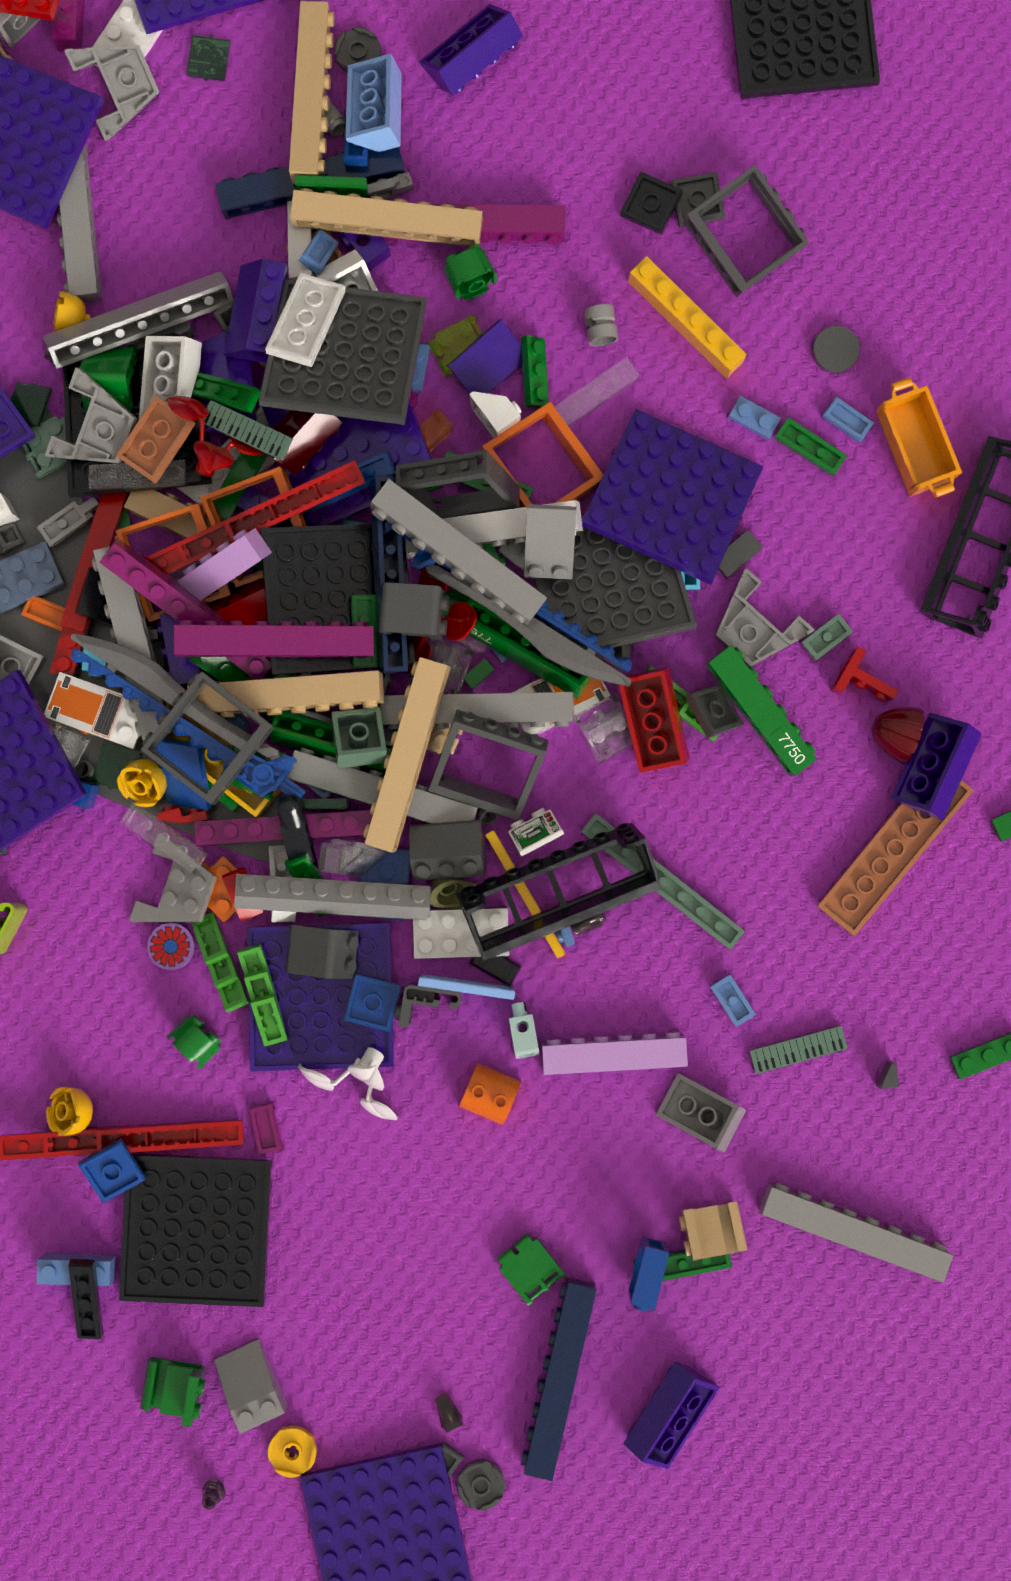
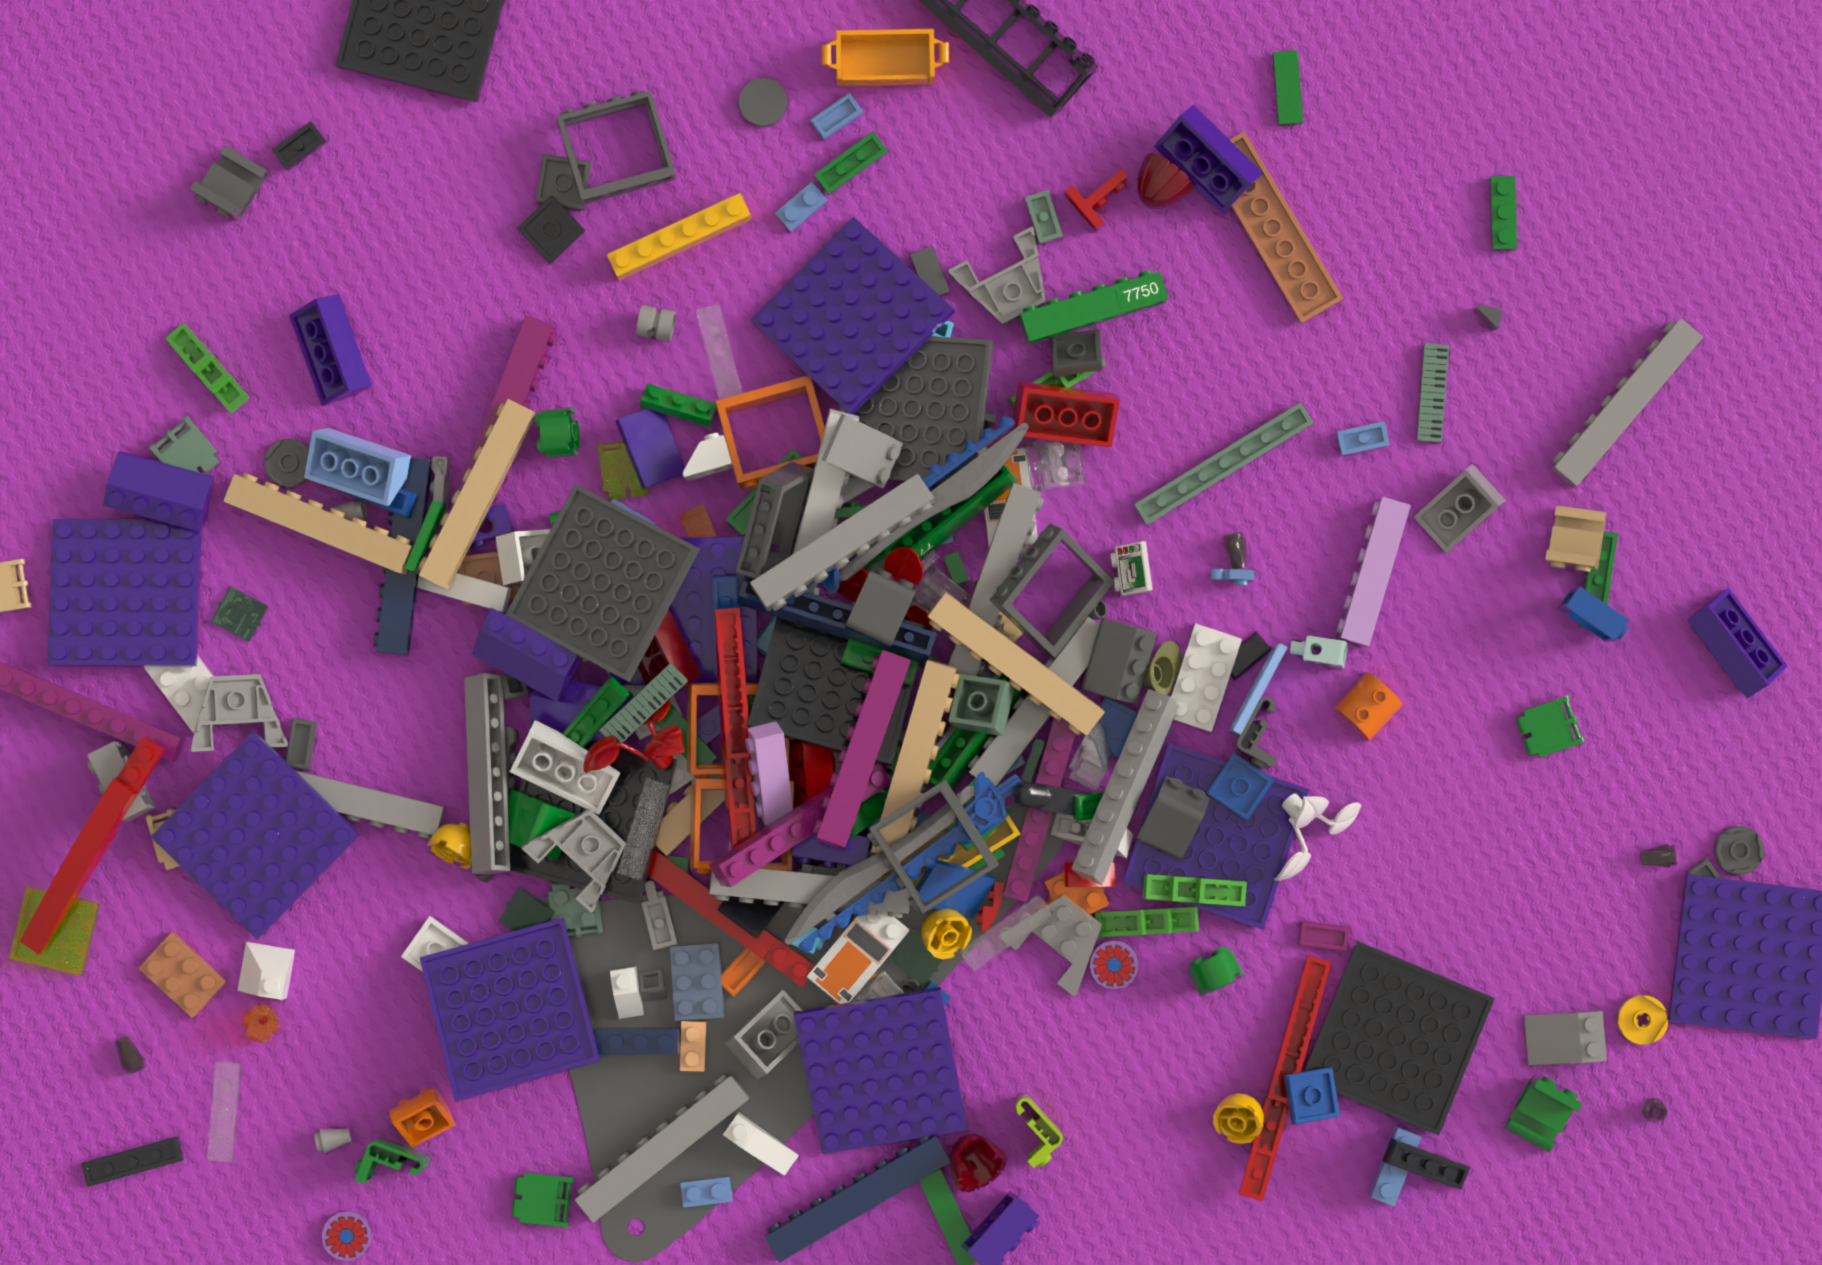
camera: 65 degrees left, 0 degrees up
(112, 153) = (301, 743): none -> dark grey tile
(155, 440) = (620, 797): nougat plate -> none
(305, 319) = (557, 608): white tile -> none
(318, 251) = (485, 573): medium blue tile -> none
(523, 890) = (1188, 601): yellow tile -> none
(559, 1378) = (1664, 737): dark blue brick -> none
(566, 912) = (1222, 566): black window -> none

